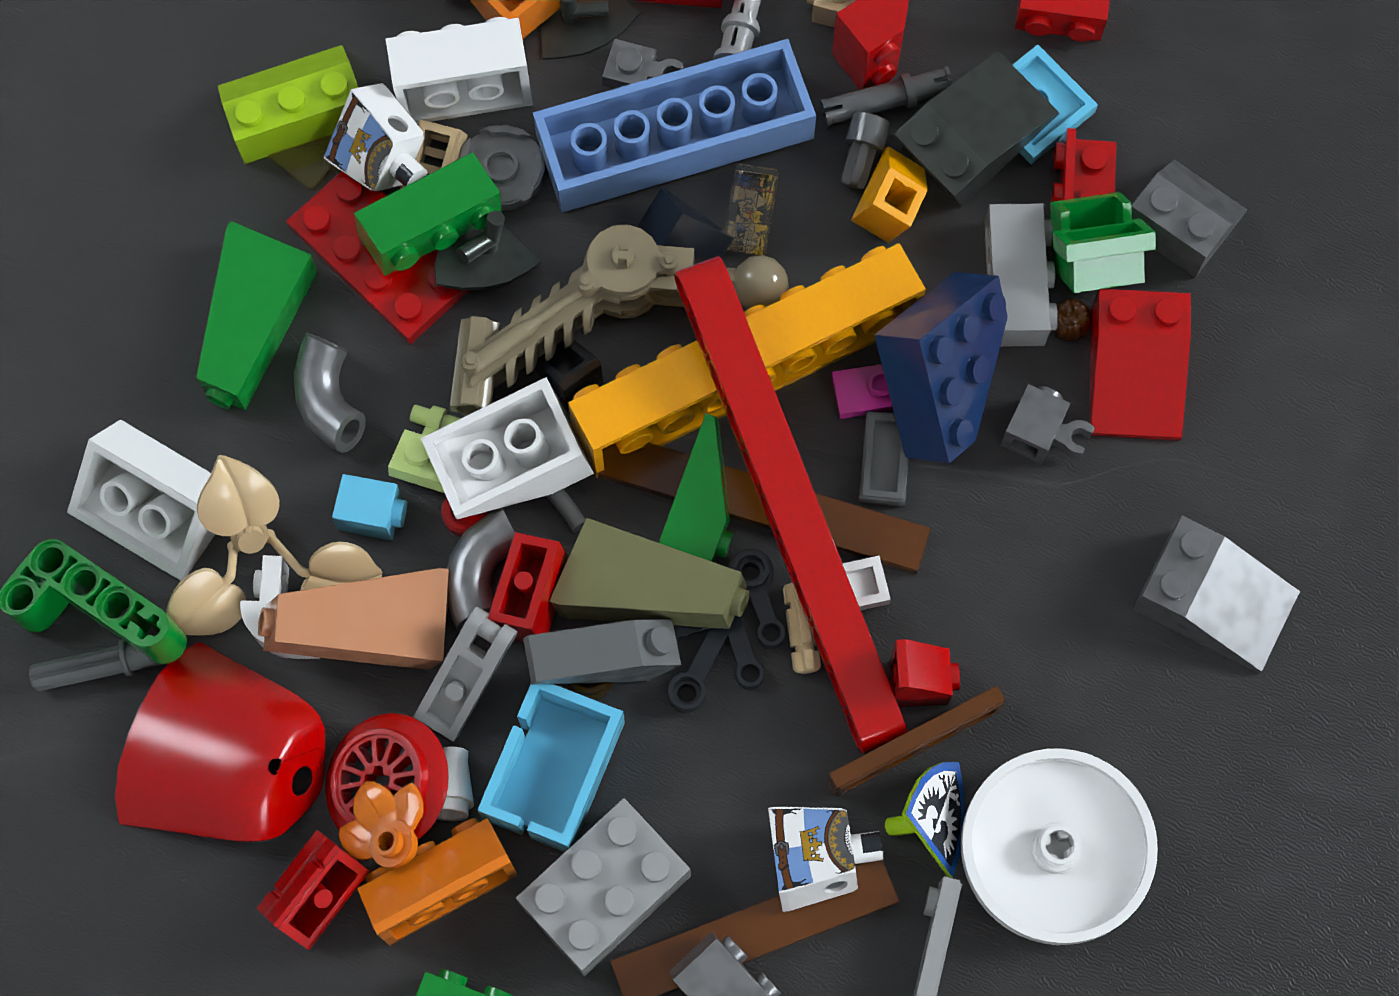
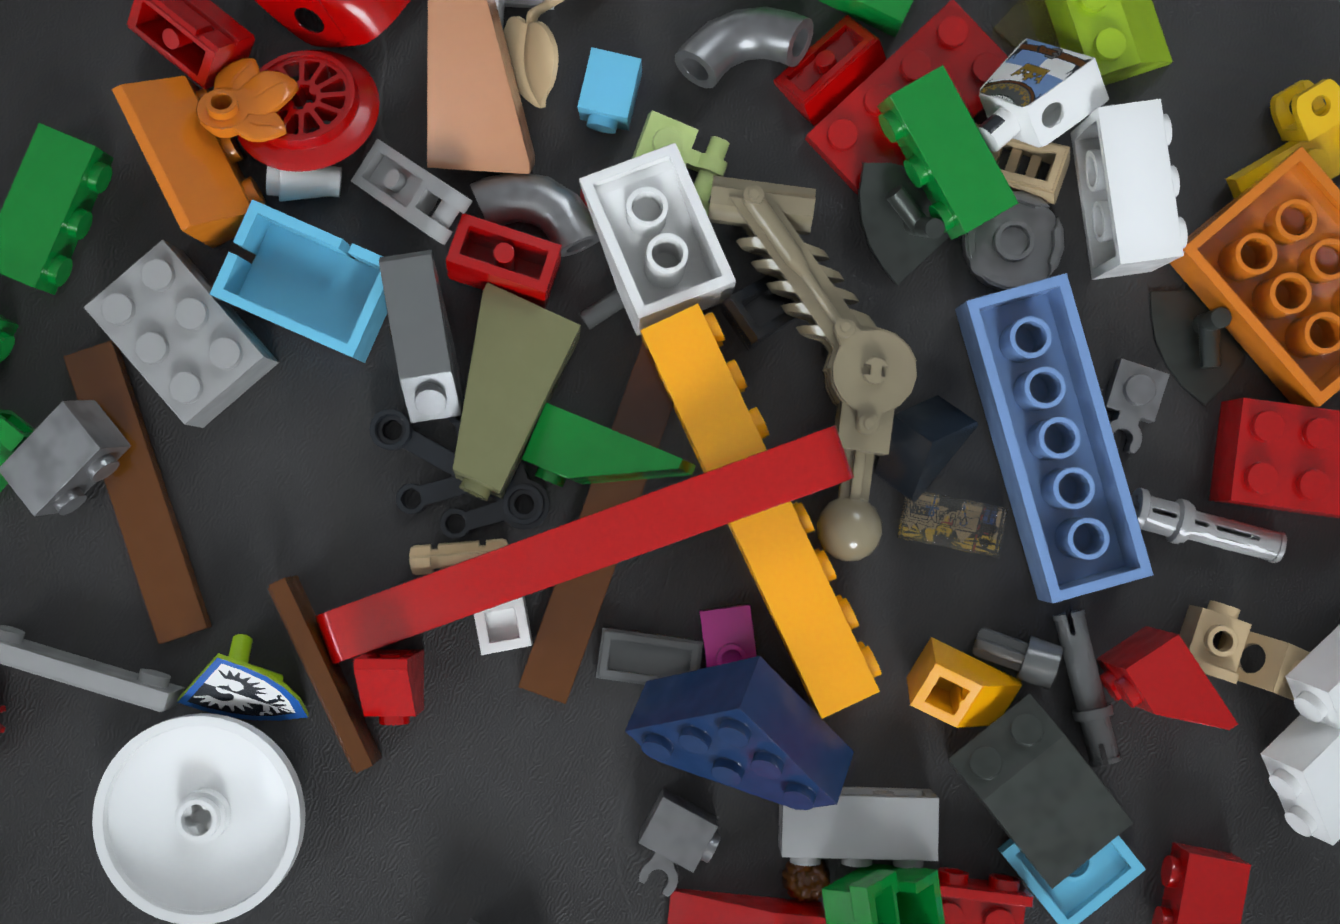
camera: 90 degrees right, 15 degrees up
(347, 322) = (831, 69): none -> red slope
(817, 854) = (202, 560): torso -> none

